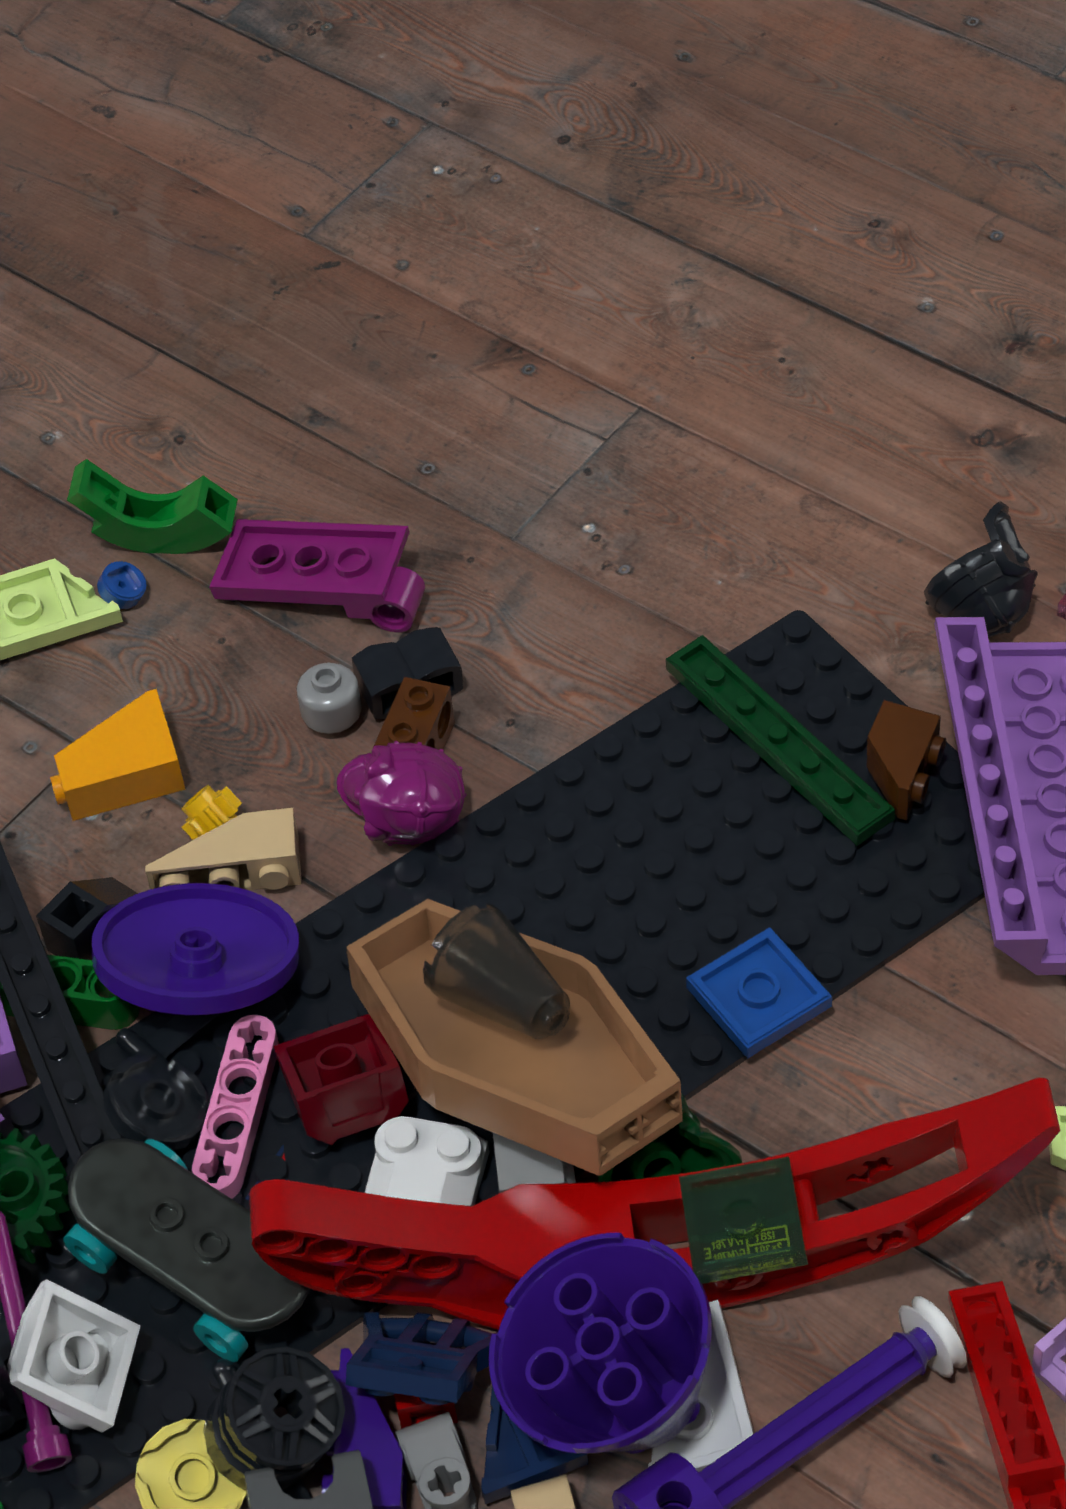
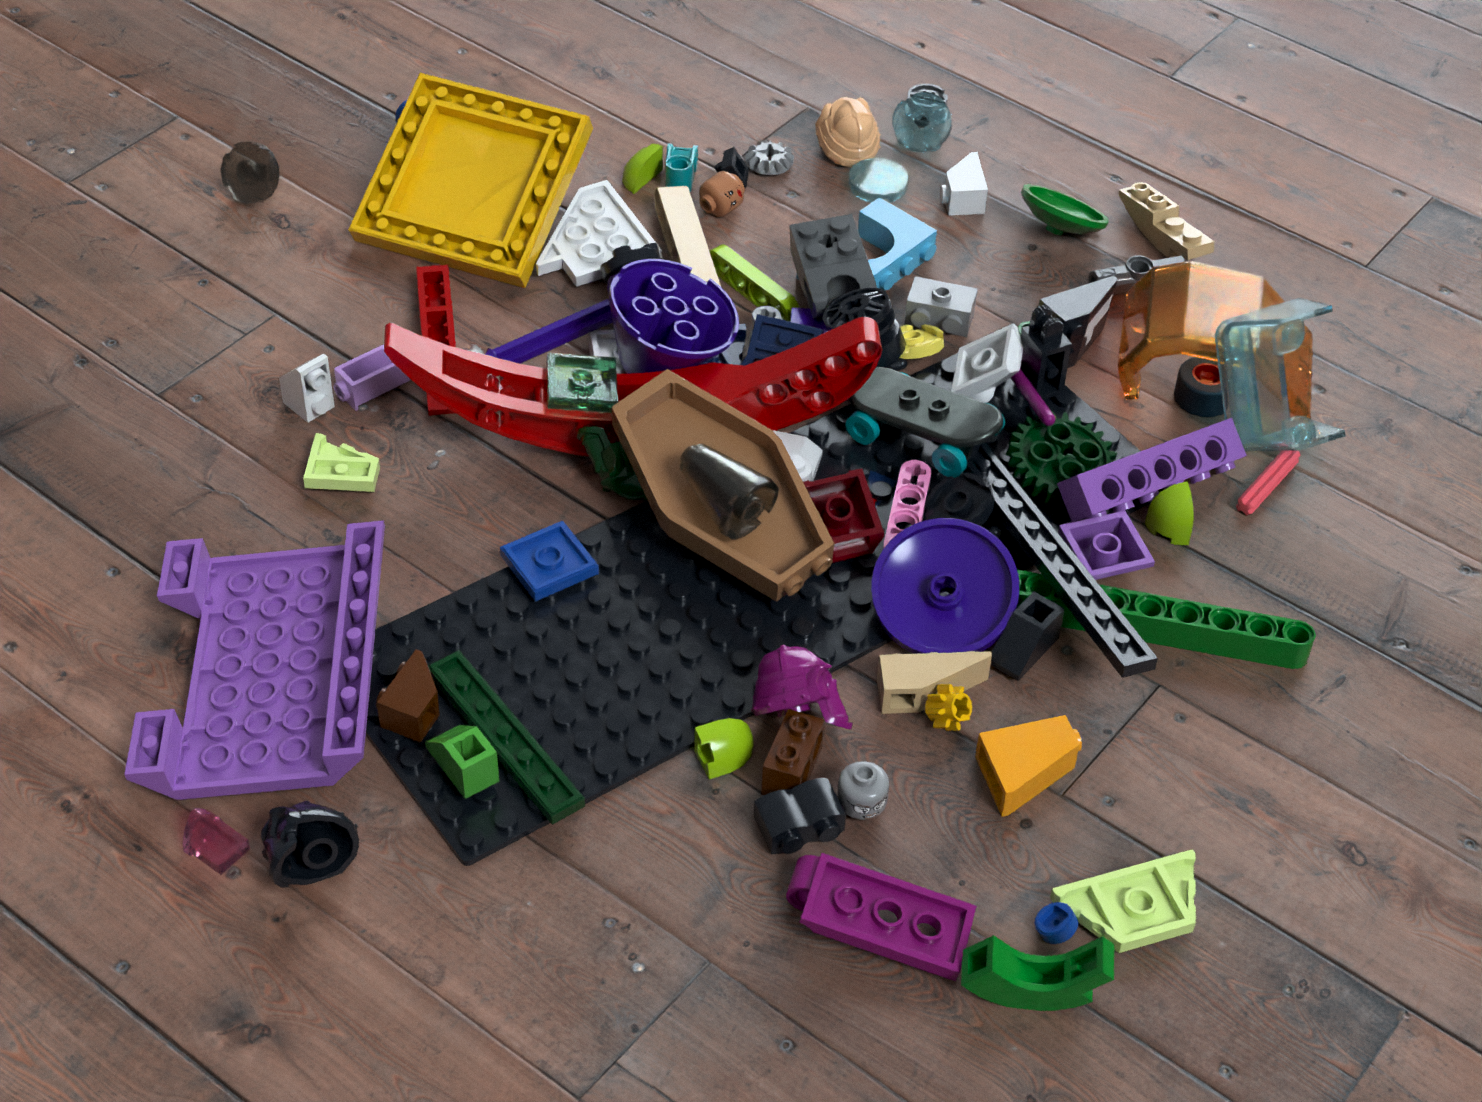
camera: 175 degrees right, 5 degrees down
(501, 759) = (723, 746): none -> lime brick
(820, 677) = (466, 758): none -> bright green slope

